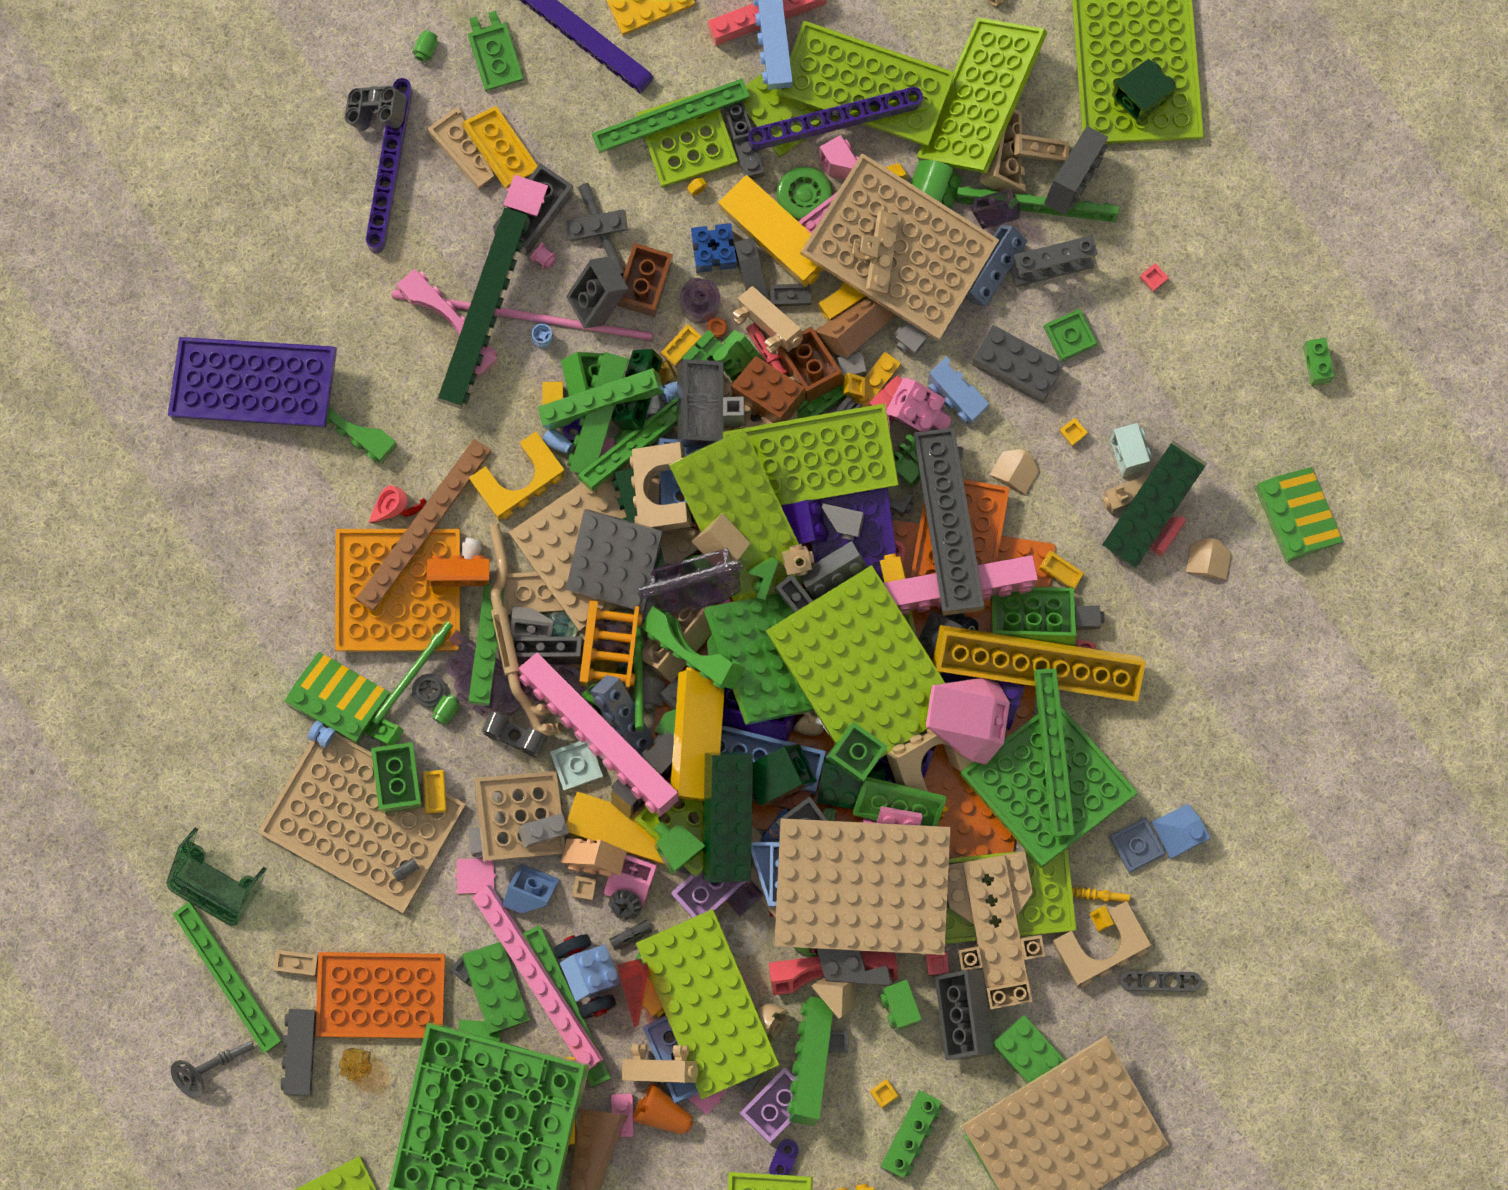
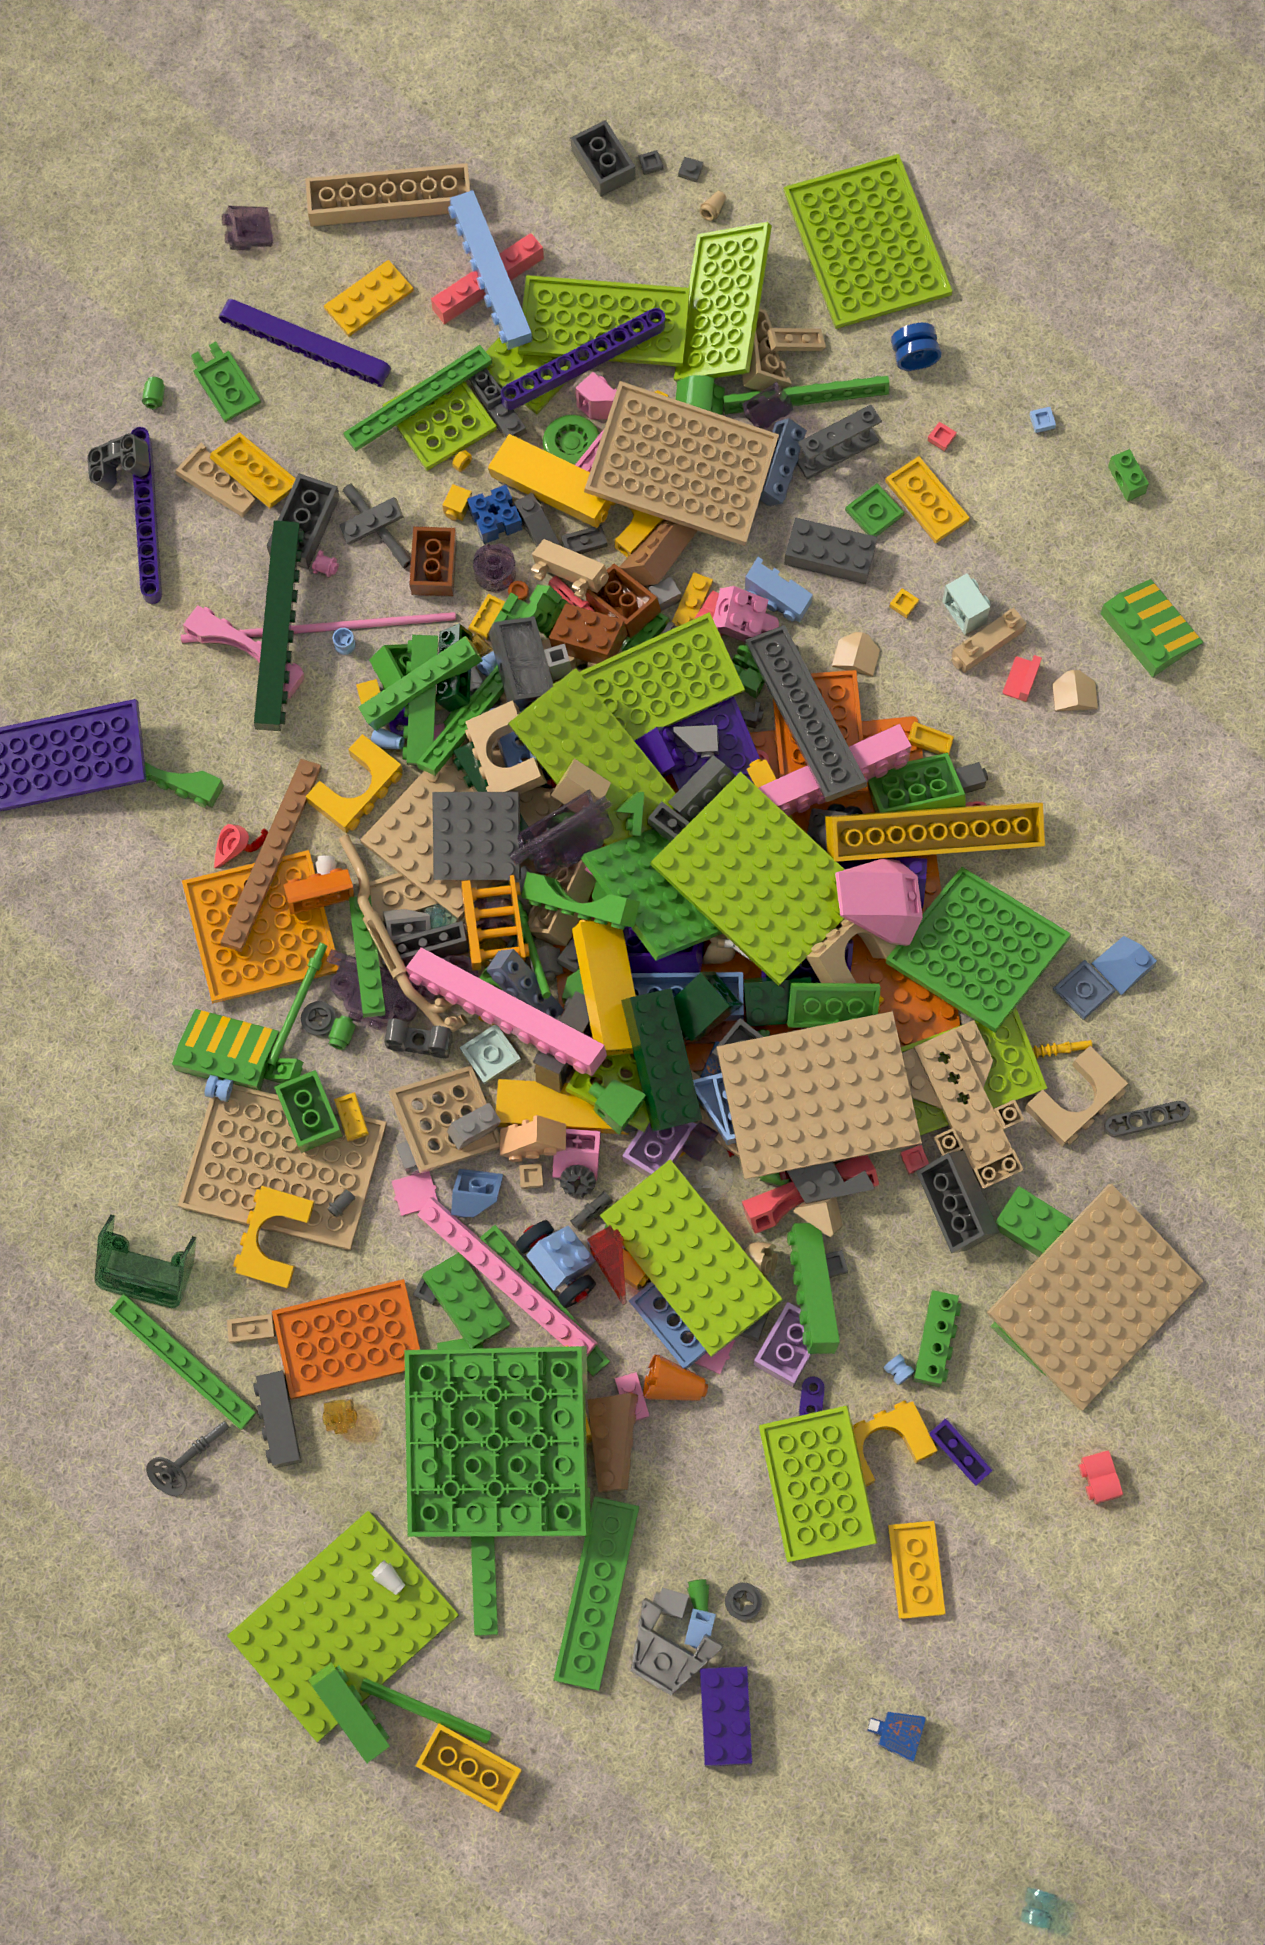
camera: 10 degrees left, 5 degrees down
(313, 901) = (252, 1259): none -> yellow arch
(525, 195) = (292, 506): bright pink piece -> none
(597, 292) = (388, 581): dark grey brick -> none
(659, 1070) = (658, 1338): tan brick -> none
(680, 227) = (455, 504): none -> yellow brick
(790, 557) = (656, 790): tan brick -> none
(854, 385) = (672, 610): yellow plate -> none
(856, 751) = (776, 958): bright green brick -> none
(869, 1153) = (898, 1368): none -> light blue wheel
(879, 251) = (662, 468): tan plate -> none
(884, 1093) = (896, 1305): yellow tile -> none
(897, 816) = (830, 1016): bright pink plate -> none
(901, 1006) = (889, 1209): bright green brick -> none
(909, 339) = (715, 553): light grey brick -> none
(1054, 752) = (976, 913): bright green plate -> none
(1077, 171) = (838, 350): dark grey brick -> none
(1101, 918) = (1069, 1071): yellow tile -> none
(1122, 336) = (927, 499): none -> yellow plate
(1143, 90) = (881, 260): dark green slope -> none
(1152, 184) = (916, 346): none -> blue wheel
(1154, 504) = (1006, 647): dark green brick -> none
(1253, 285) = (1042, 419): none -> light blue plate

